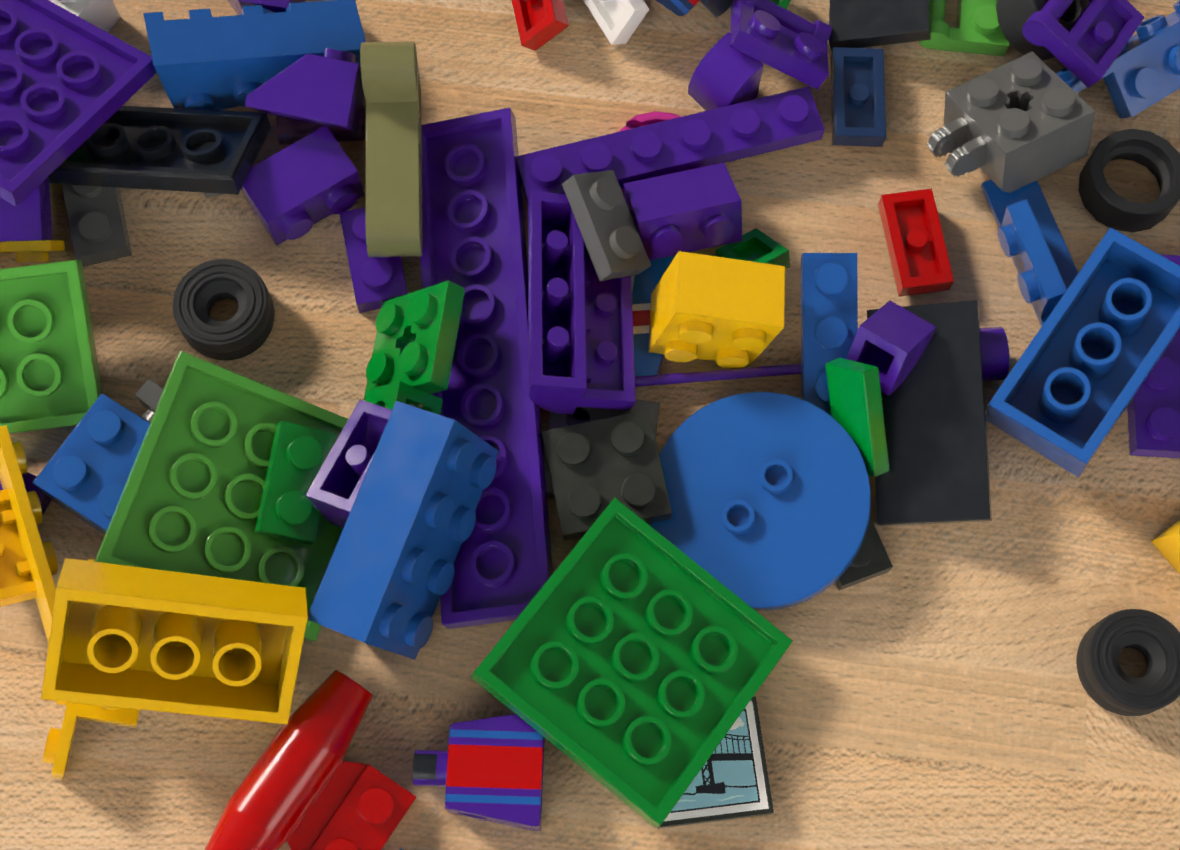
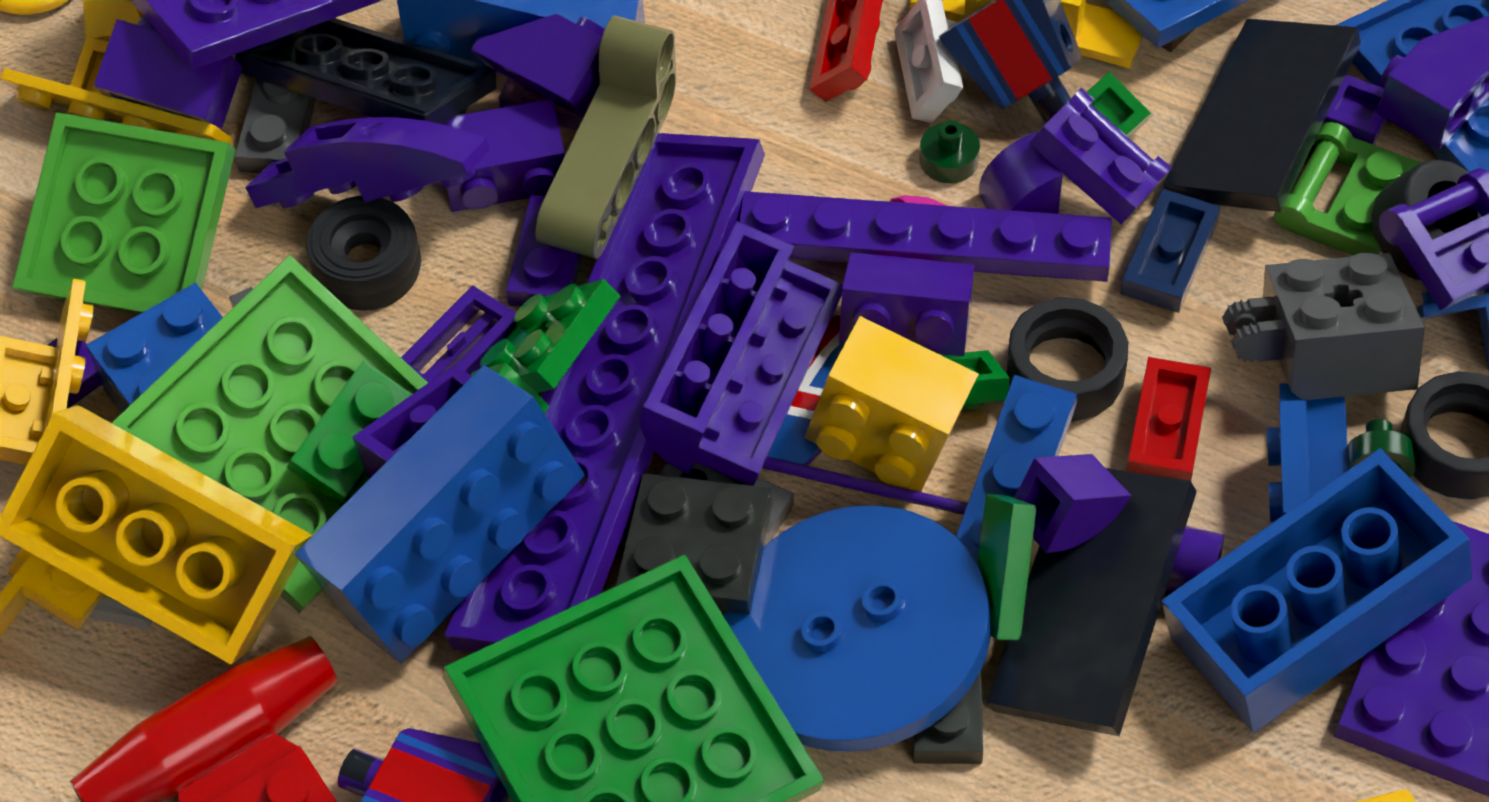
camera: 25 degrees right, 15 degrees down
(206, 224) = (374, 154): none -> dark purple slope
(357, 369) = (466, 348): none -> dark purple tile
(606, 225) = (806, 283): dark grey plate -> none
(653, 65) = (949, 152): none -> dark green tile
(819, 180) = (1072, 320): none -> black tyre
(1081, 217) = (1380, 435): none -> dark green tile

